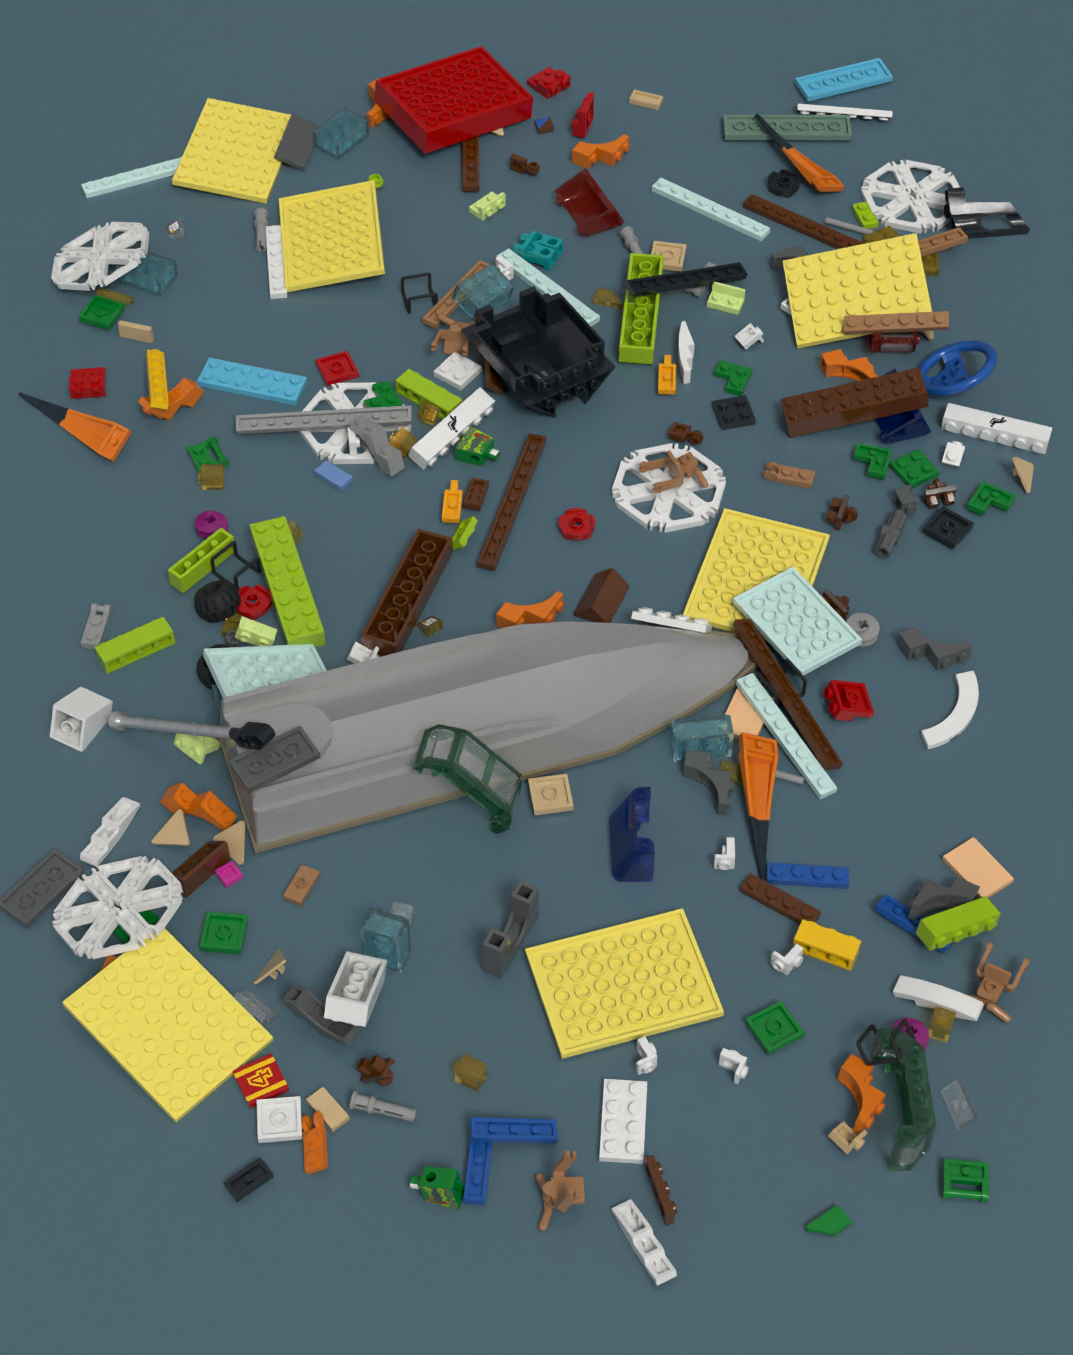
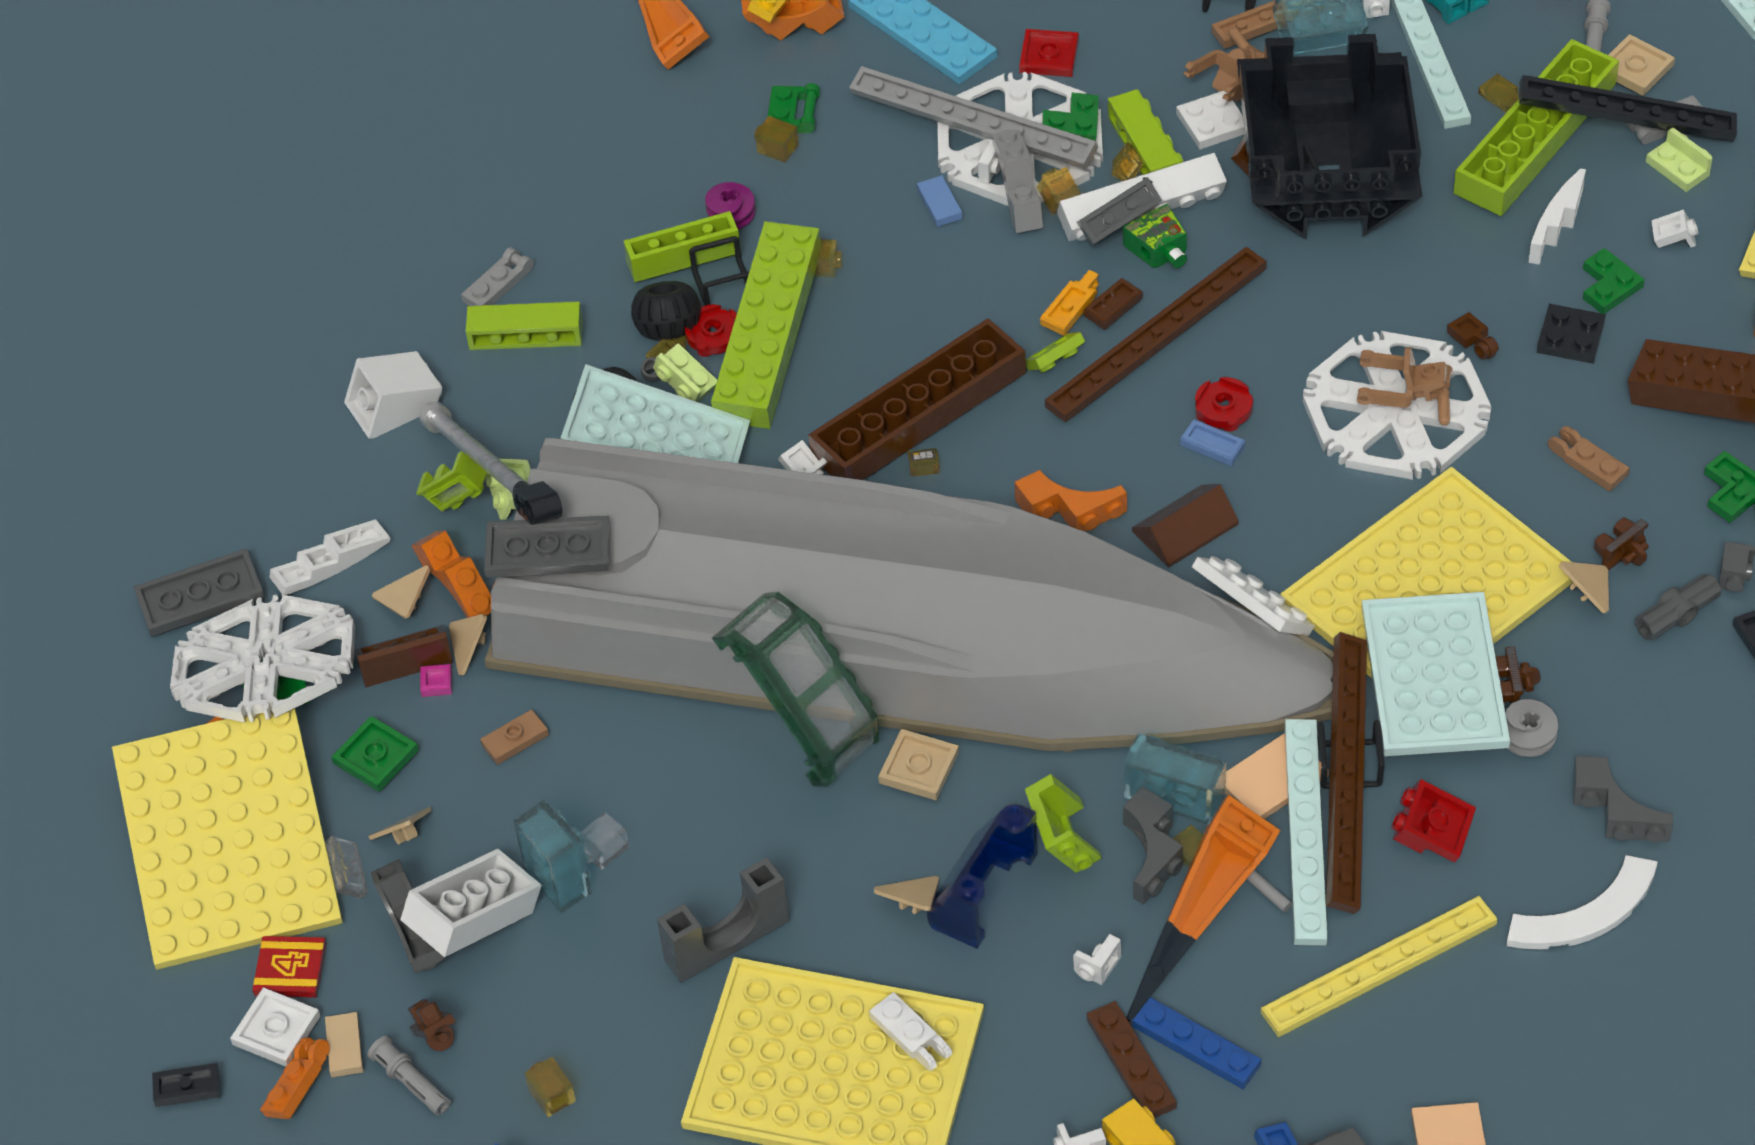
camera: 35 degrees right, 0 degrees up
(163, 756) = (452, 486): none -> lime window
(449, 440) = (1119, 211): none -> dark grey plate
(584, 548) = (1212, 442): none -> medium blue tile
(599, 865) = (914, 893): none -> tan piece
(646, 778) = (1053, 807): none -> lime panel
(655, 942) = (909, 1030): none -> white hinge
(667, 377) = (1506, 241): light orange hinge -> none
(837, 537) = (1591, 580): none -> tan piece
(871, 791) = (1378, 966): none -> light yellow tile

